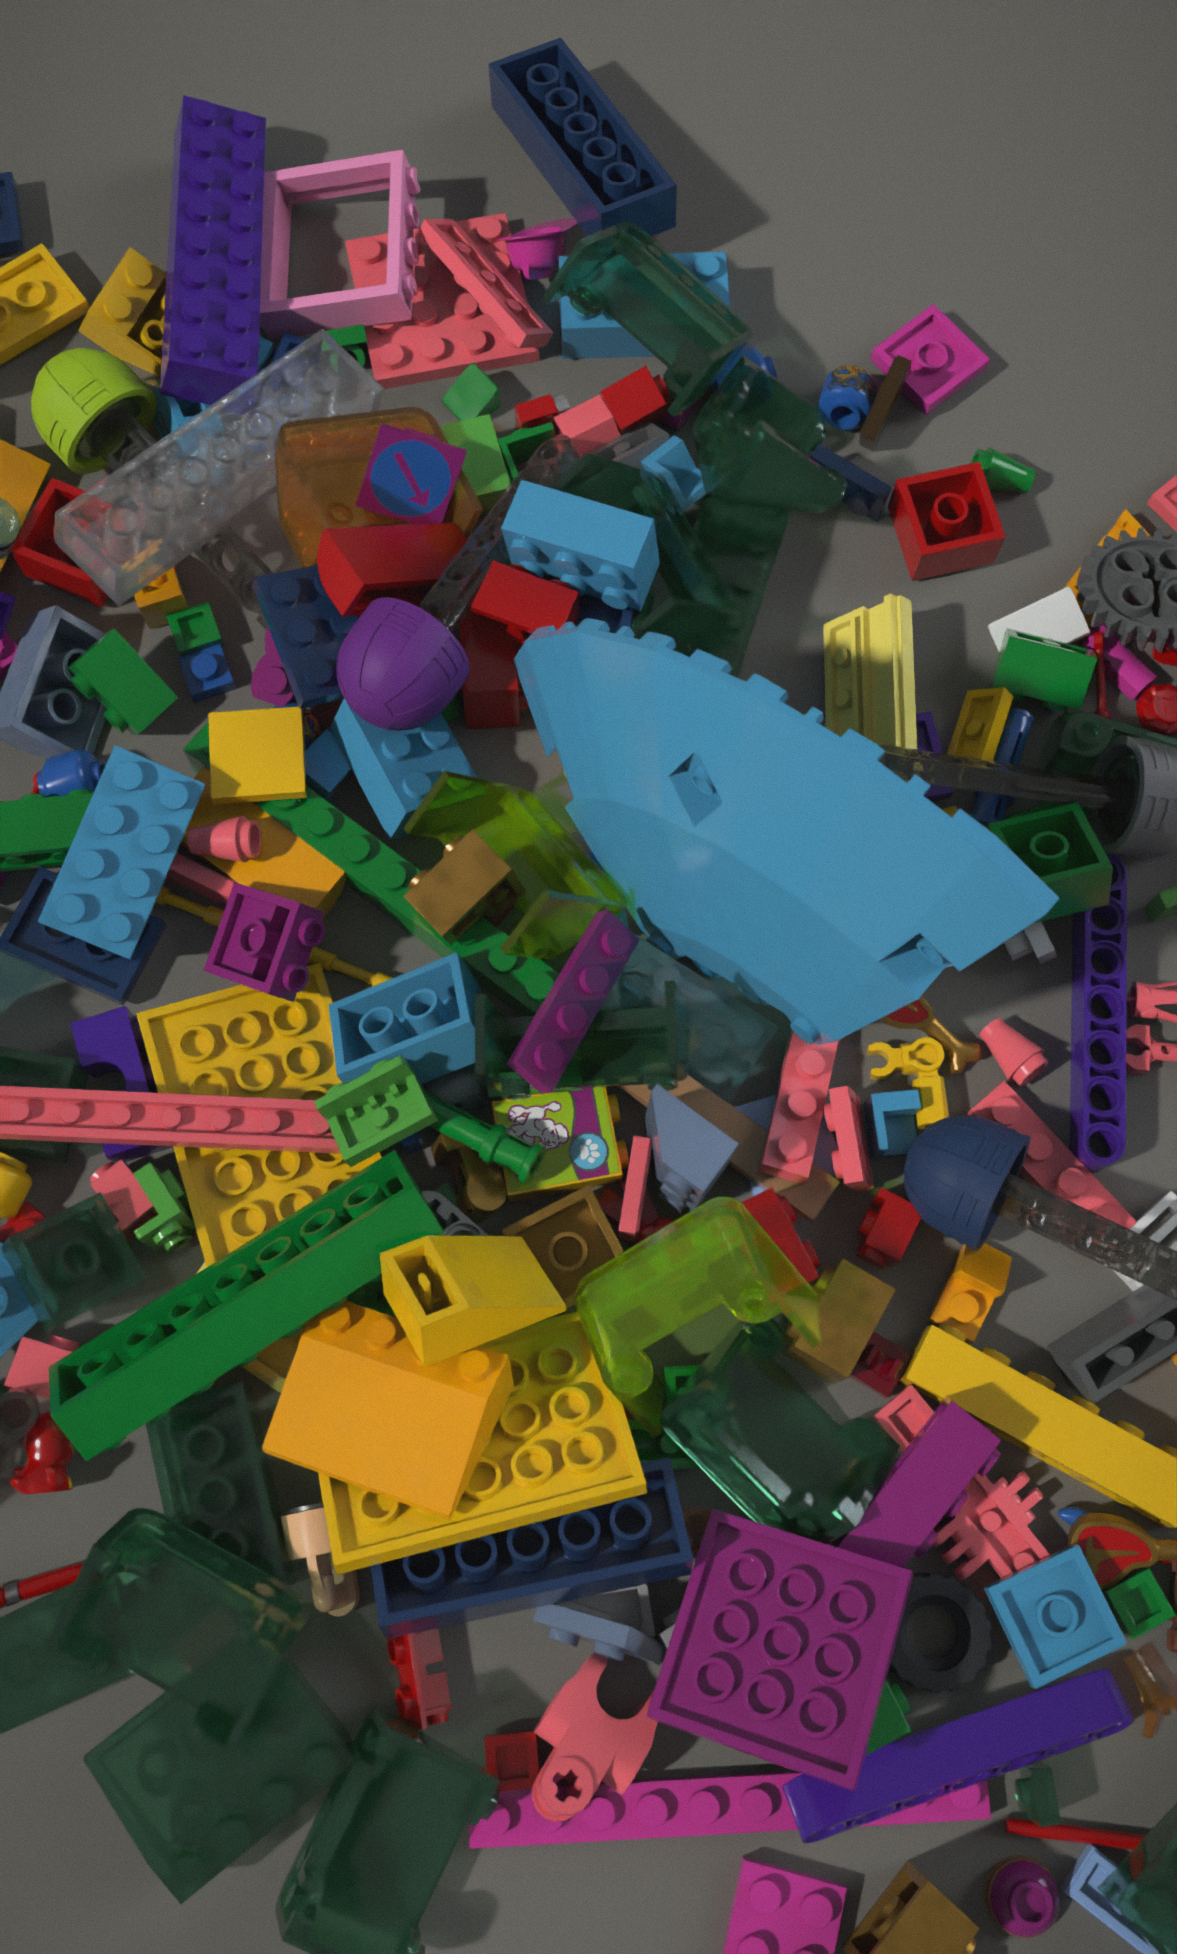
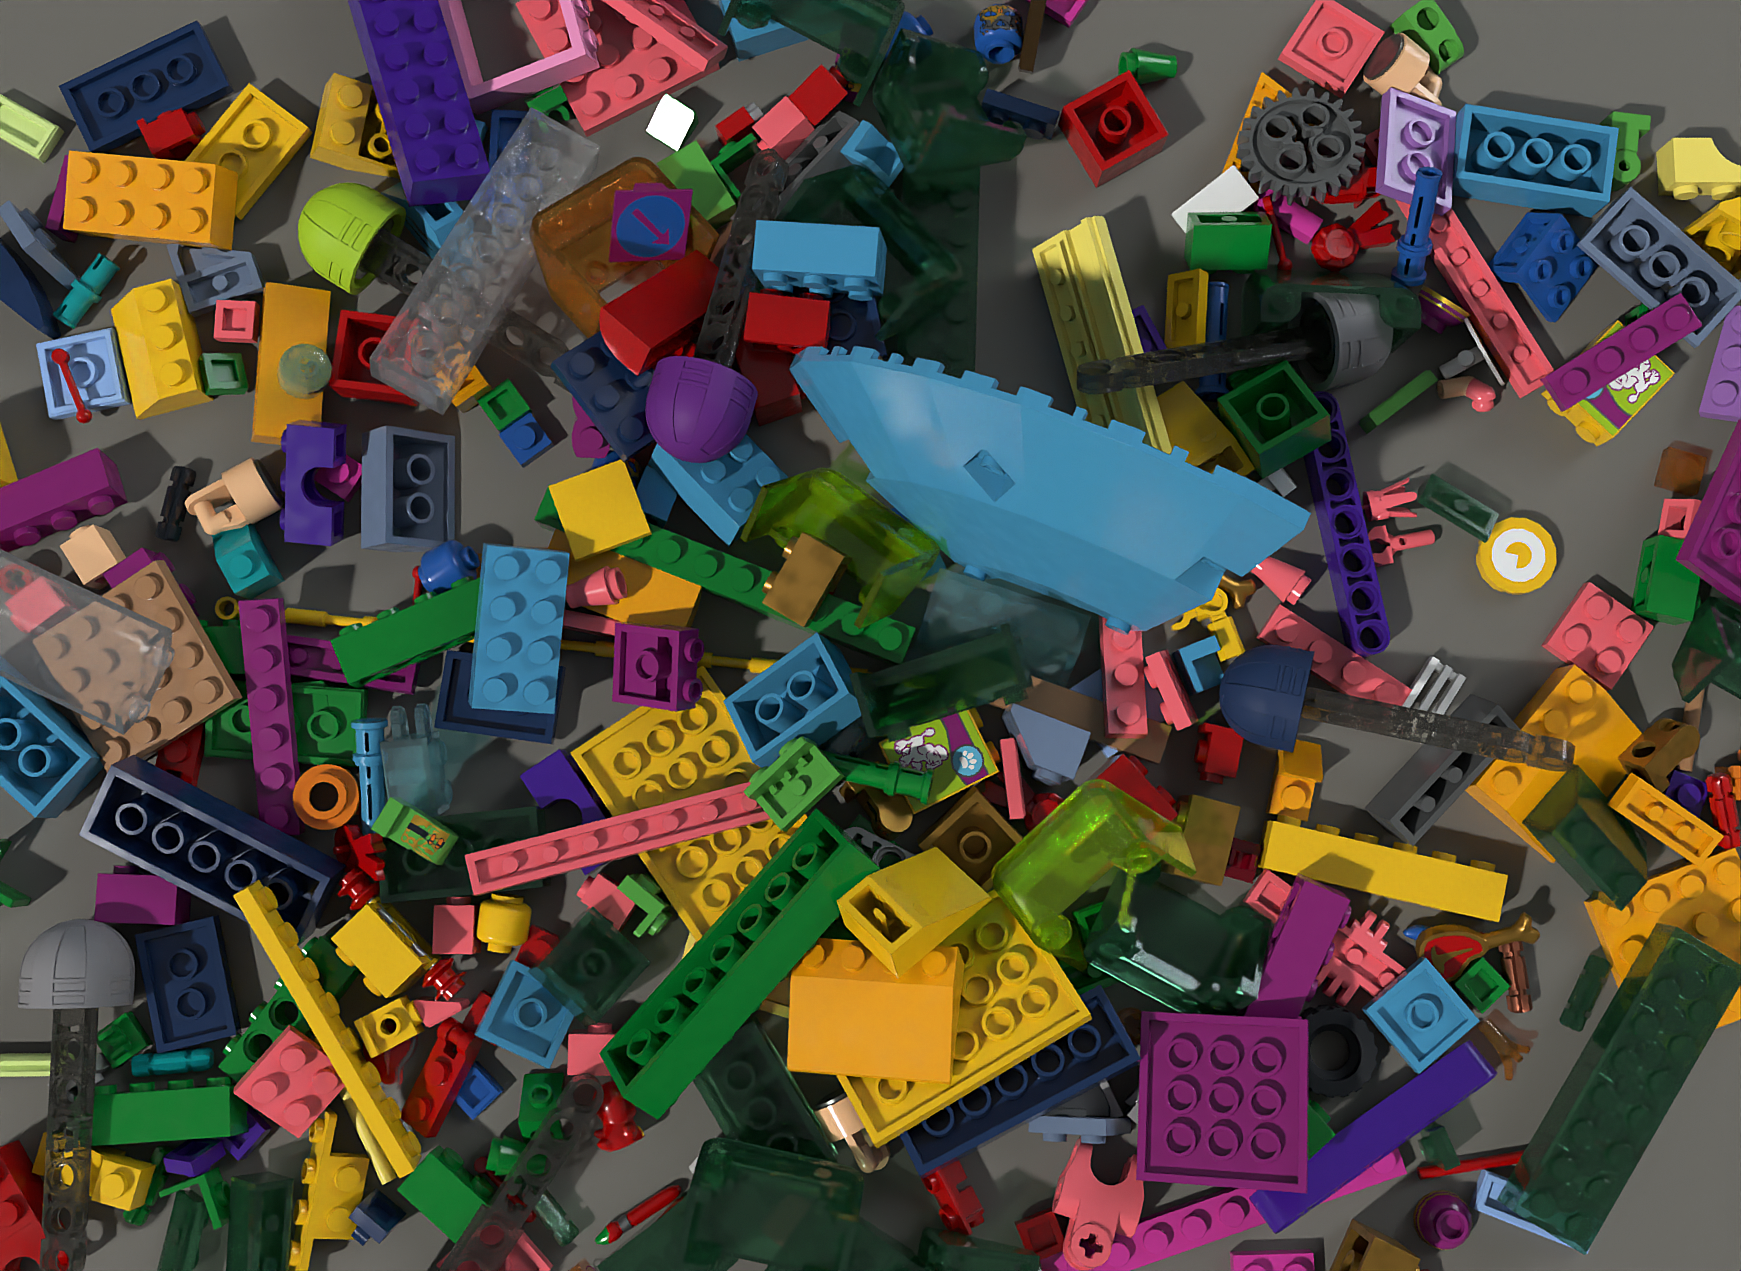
camera: 15 degrees left, 10 degrees up
(121, 683) = (462, 474): green brick -> none
(573, 1002) = (925, 649): magenta plate -> none

